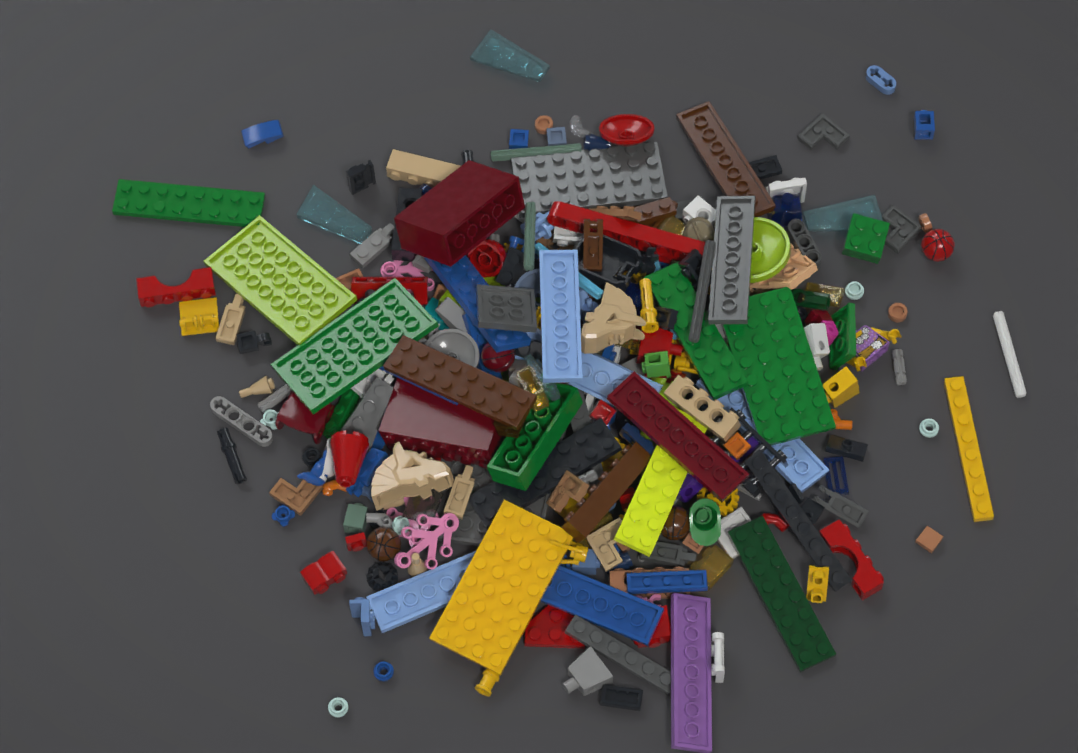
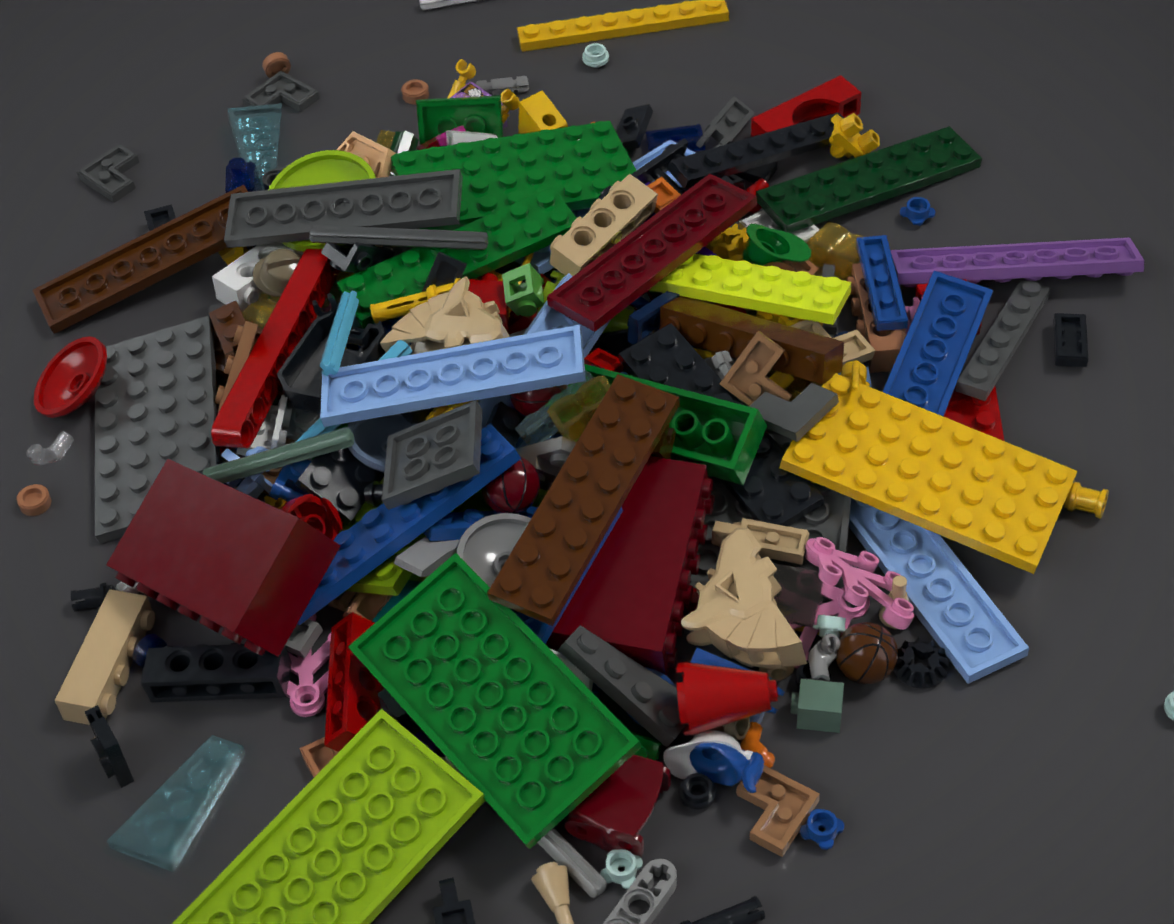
camera: 90 degrees left, 15 degrees down
(324, 573) = (932, 746): red brick -> none
(356, 542) = (864, 701): red plate -> none
(361, 609) = (1013, 664): medium blue bracket -> none
(373, 245) = (252, 731): light grey hinge -> none
(383, 666) = (1099, 637): blue plate -> none
(507, 154) = (87, 508): sand green axle -> none
(518, 138) = (59, 527): blue plate -> none
(533, 508) = (798, 416): none -> dark grey tile
(556, 136) = (64, 476): sand blue plate -> none
(587, 674) = (1042, 377): light grey torso -> none
(592, 245) = (291, 369): reddish brown plate -> none
(595, 142) = (84, 426): dark blue cone -> none
(613, 259) = (339, 333): none -> medium azure axle
(717, 652) = (988, 227): white plate -> none
(750, 628) = (917, 210): none -> blue plate
(792, 186) = (211, 177): white plate -> none
(854, 290) = (375, 126): light aqua plate -> none
(865, 238) = (300, 111): green brick -> none
(880, 80) = (30, 118): medium blue beam -> none
(924, 125) = (116, 69): blue brick -> none
(929, 539) = (762, 52): nougat tile -> none
(937, 245) = (316, 47): red piece -> none

